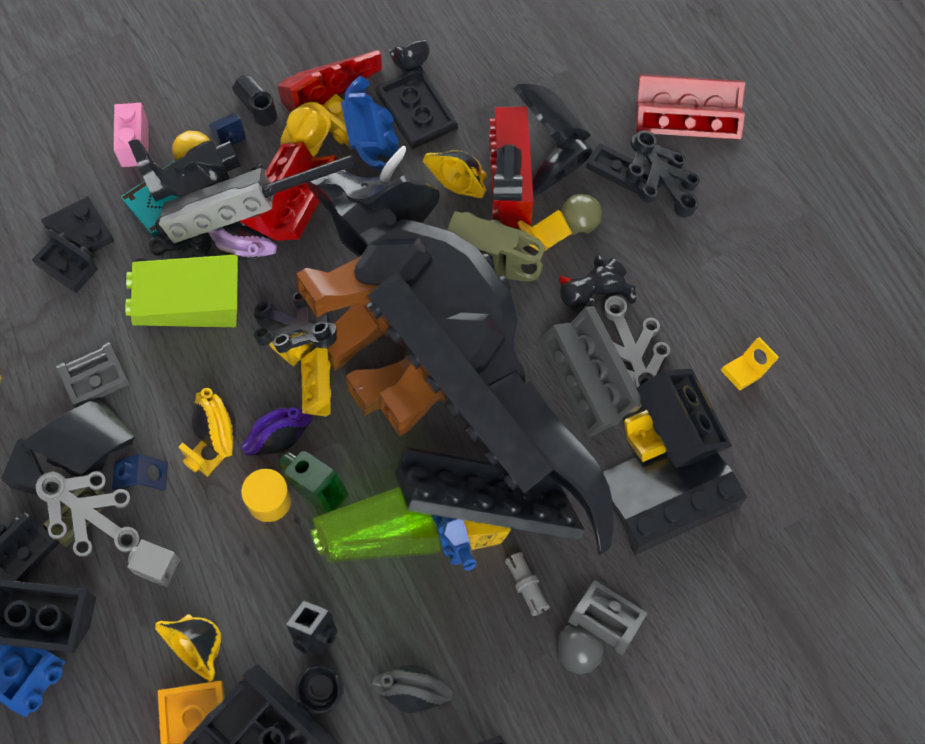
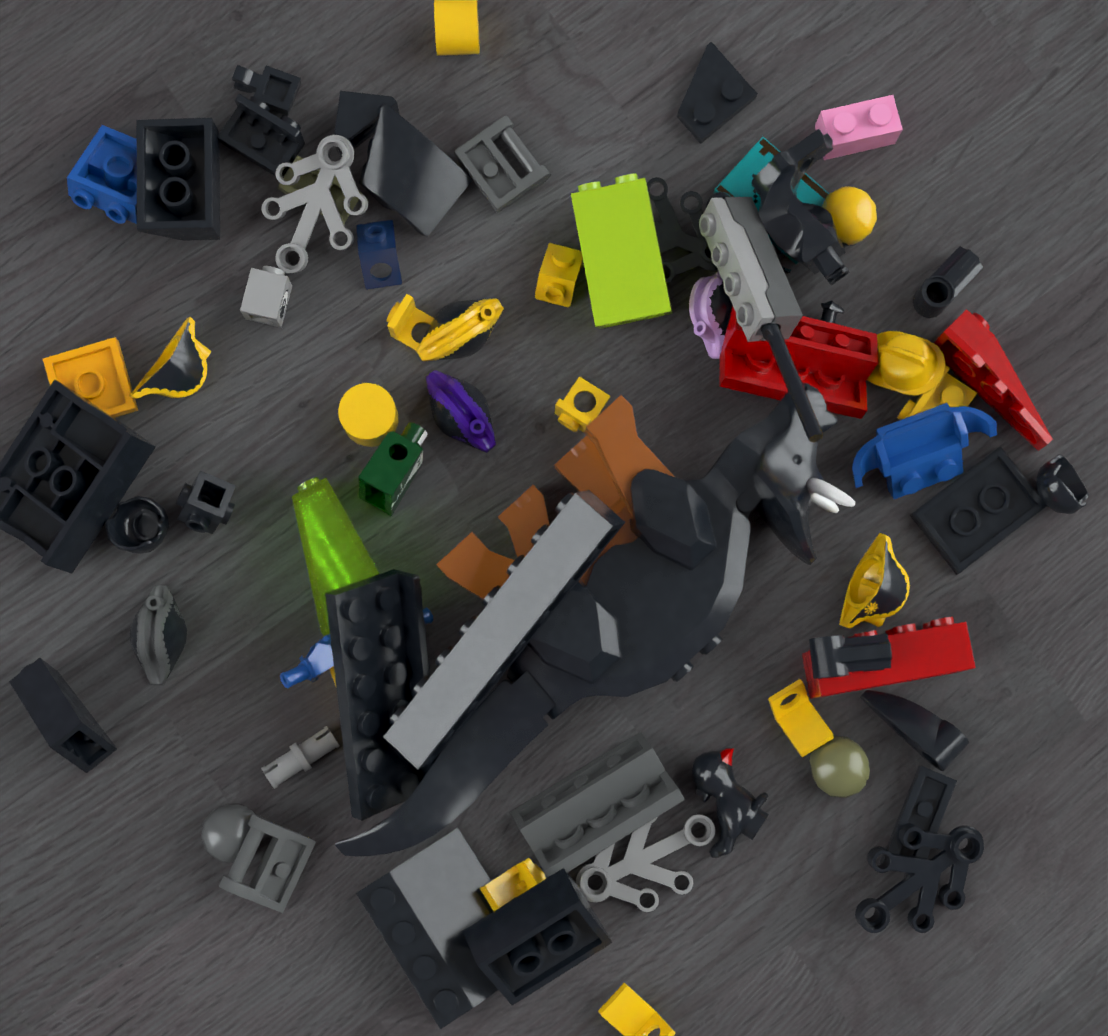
camera: 80 degrees right, 15 degrees up
(65, 261) = (651, 90): black bracket -> none
(189, 344) = (558, 275): none -> yellow bracket
(228, 129) = (885, 262): dark blue bracket -> none
(316, 383) = (525, 448): yellow bracket -> none
(320, 334) = (616, 368): black plant -> none
(500, 243) = (755, 646): olive brick -> none
(551, 112) = (985, 707): black slope -> none
(690, 106) = (1046, 909): slope -> none

